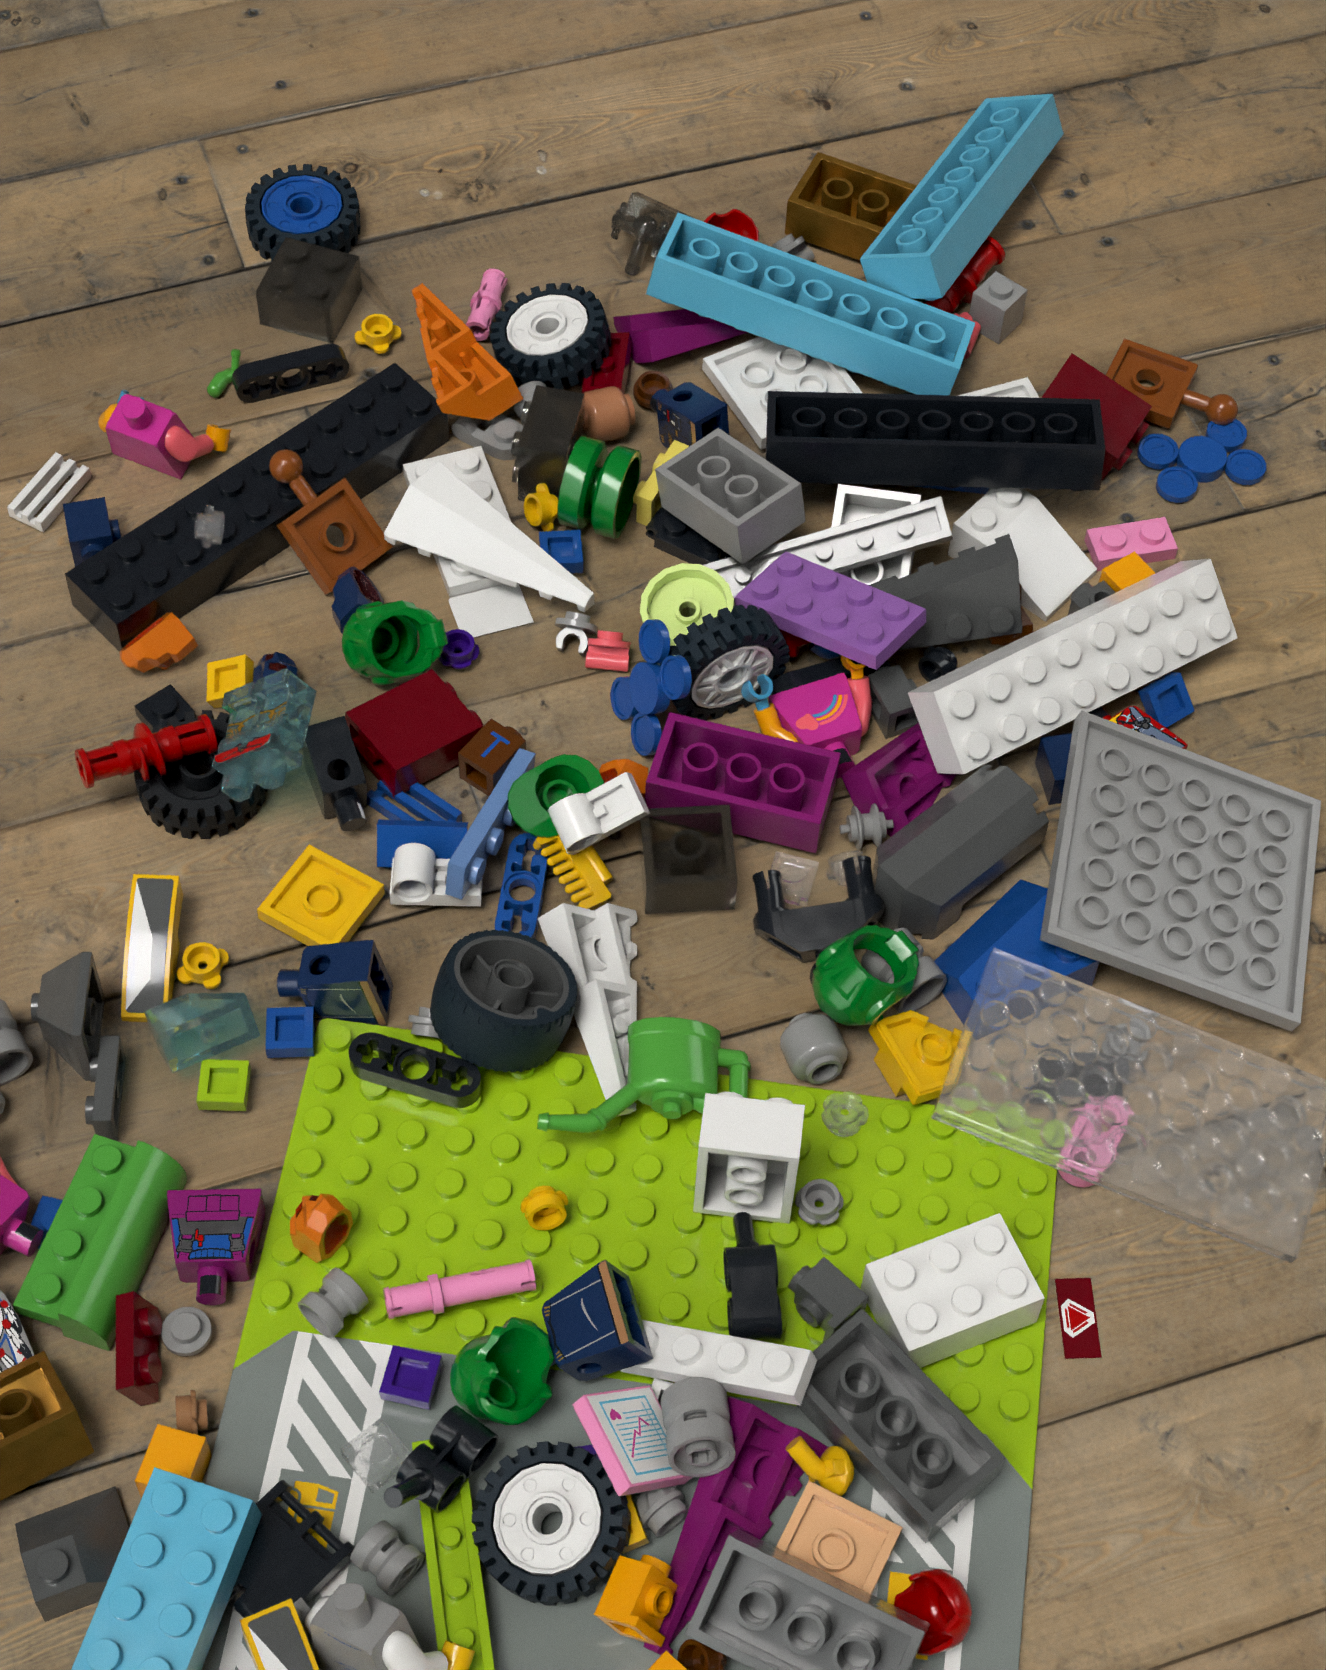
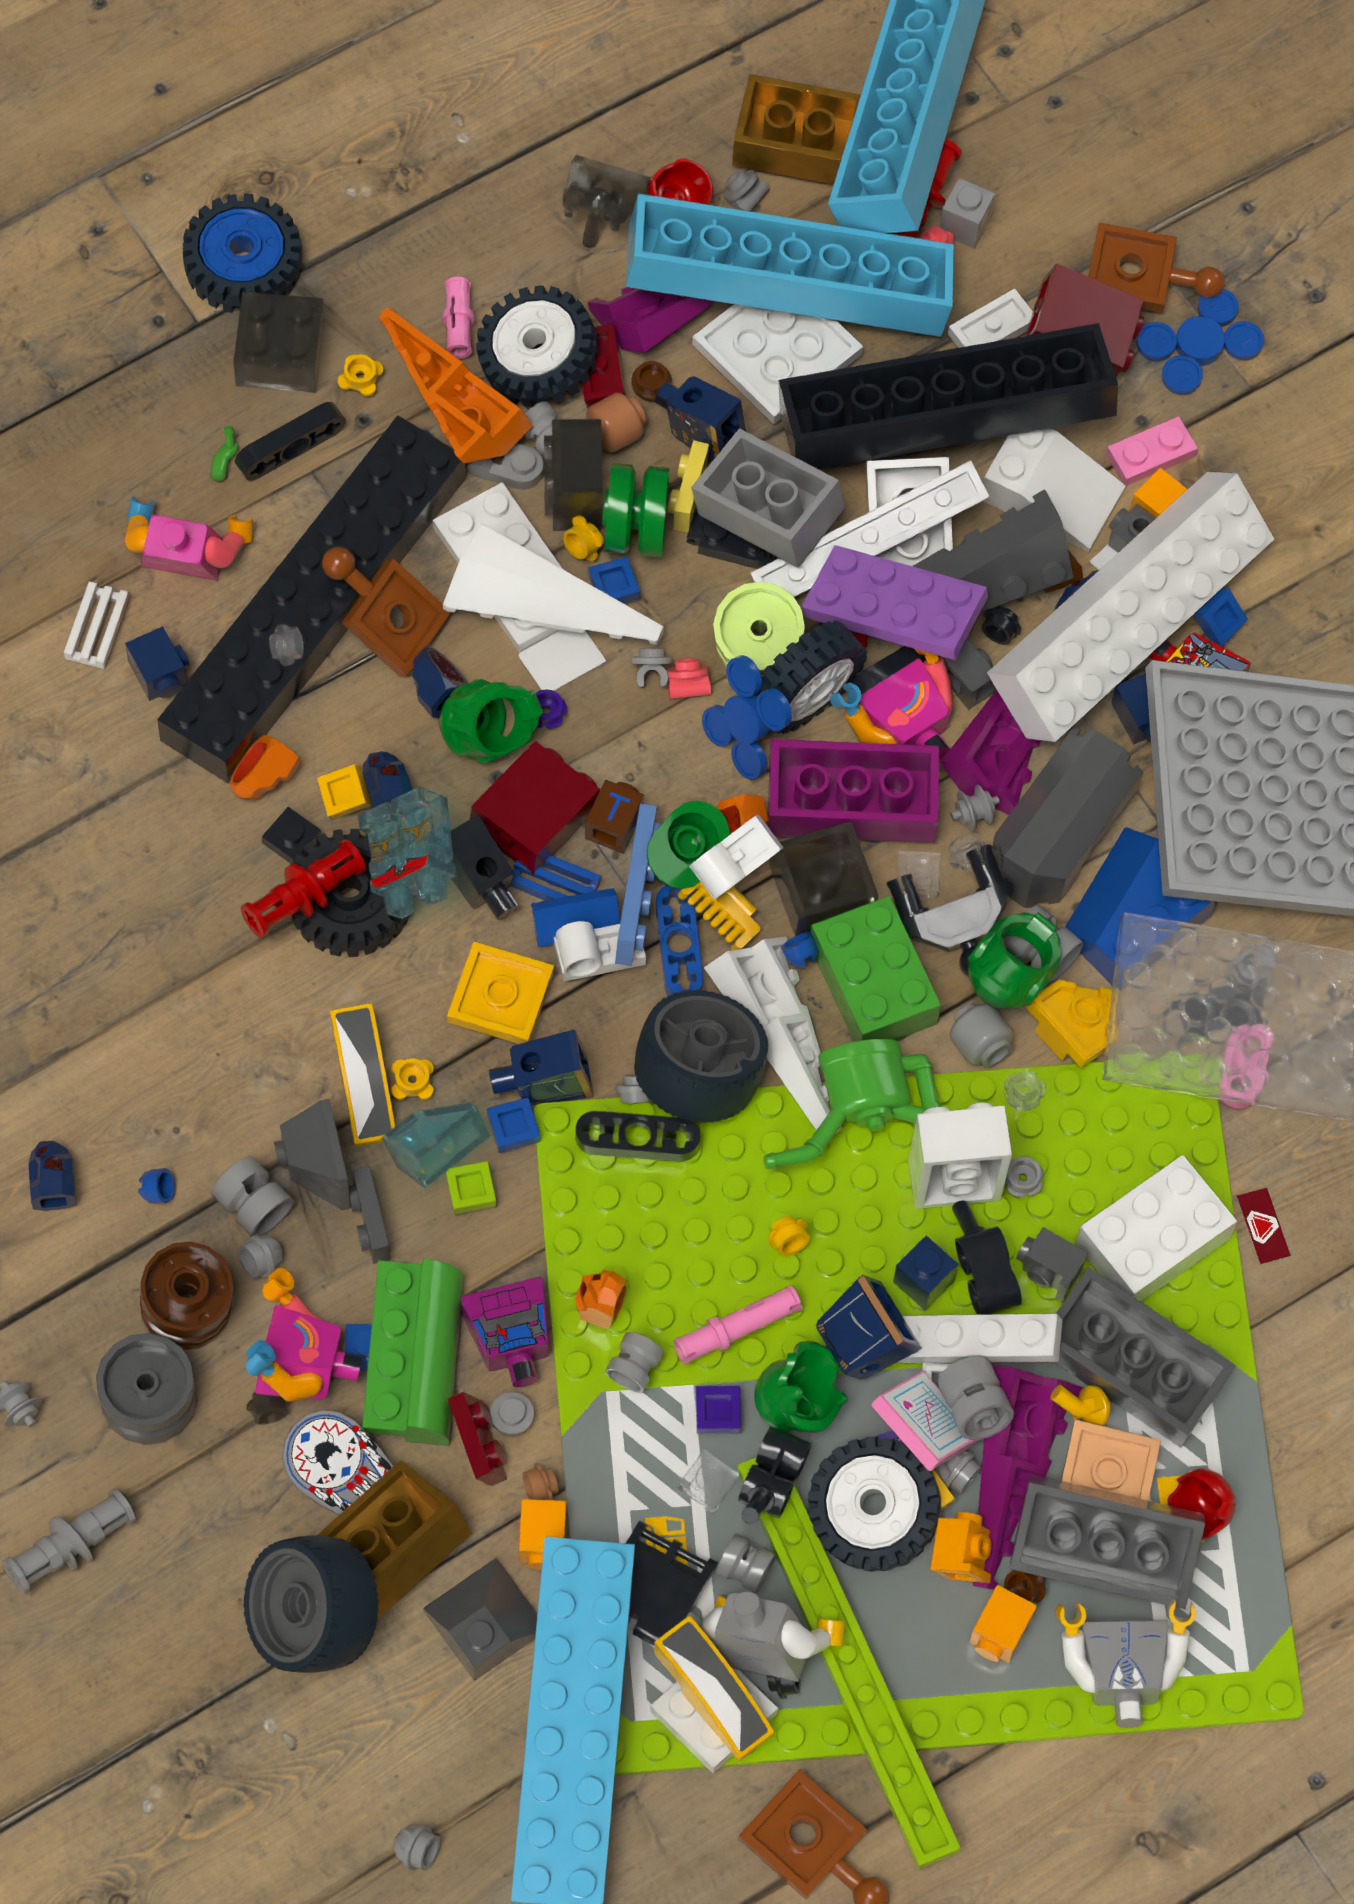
camera: 15 degrees left, 10 degrees up
(644, 921) = (800, 948): none -> blue hinge
(682, 1279) = (925, 1272): none -> dark blue brick
(717, 960) = (875, 973): none -> bright green brick

